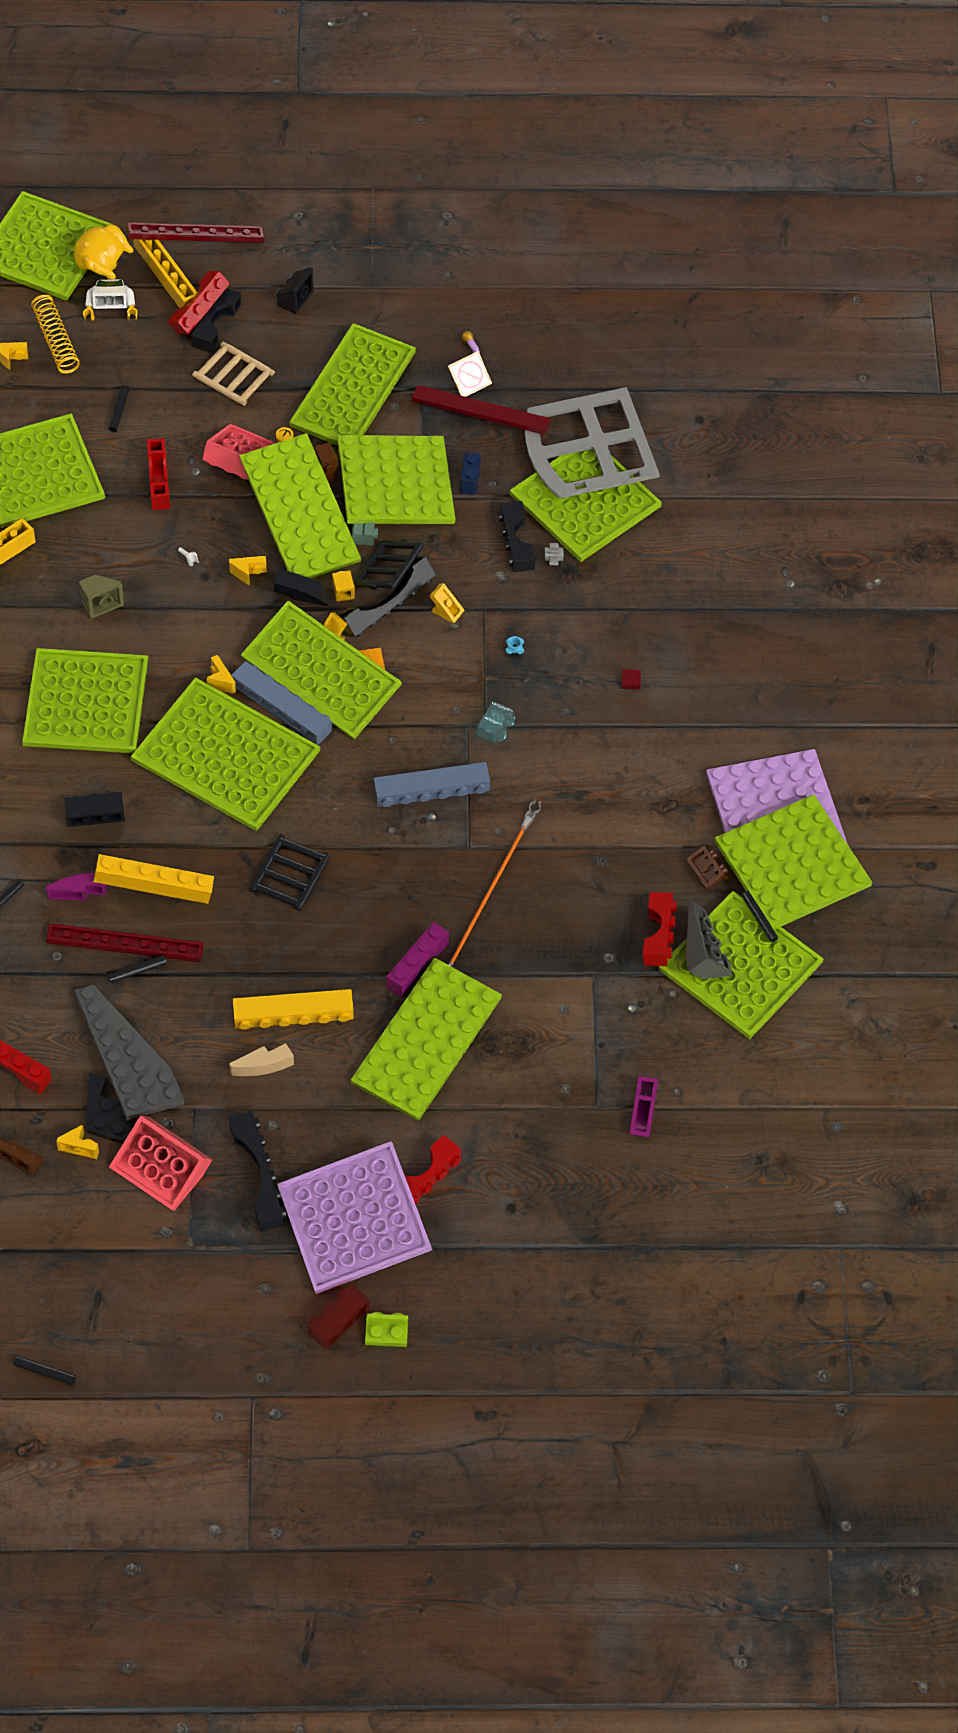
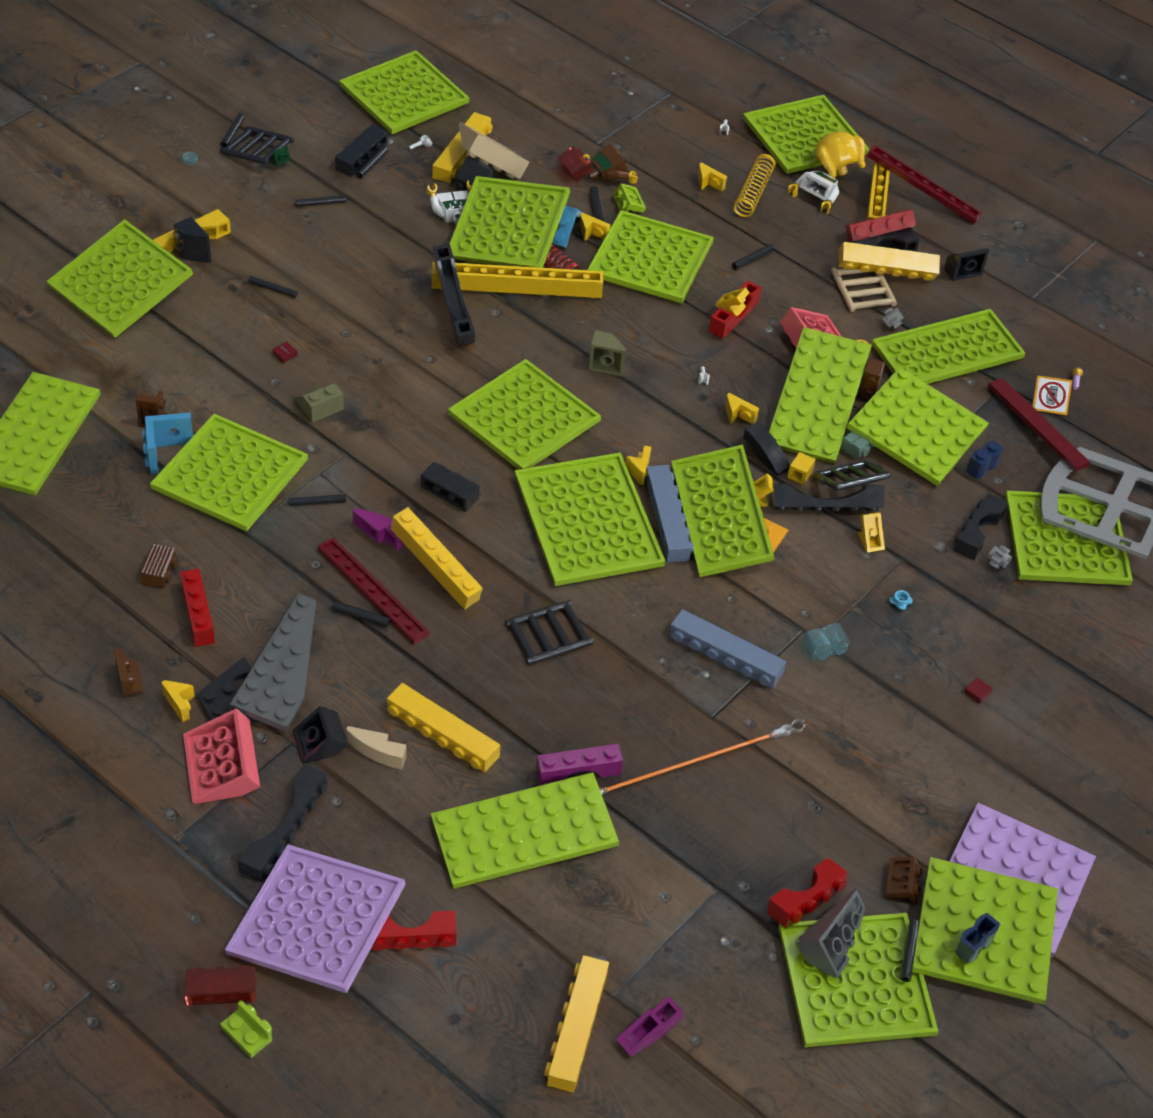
camera: 40 degrees right, 10 degrees down
(152, 469) = (733, 301): none -> yellow slope
(212, 1087) = (320, 735): none -> black slope
(236, 335) = (888, 261): none -> yellow brick
(286, 388) = (893, 317): none -> light grey gear
(596, 1143) = (577, 1025): none -> yellow brick
(800, 873) = (977, 938): none -> dark blue brick

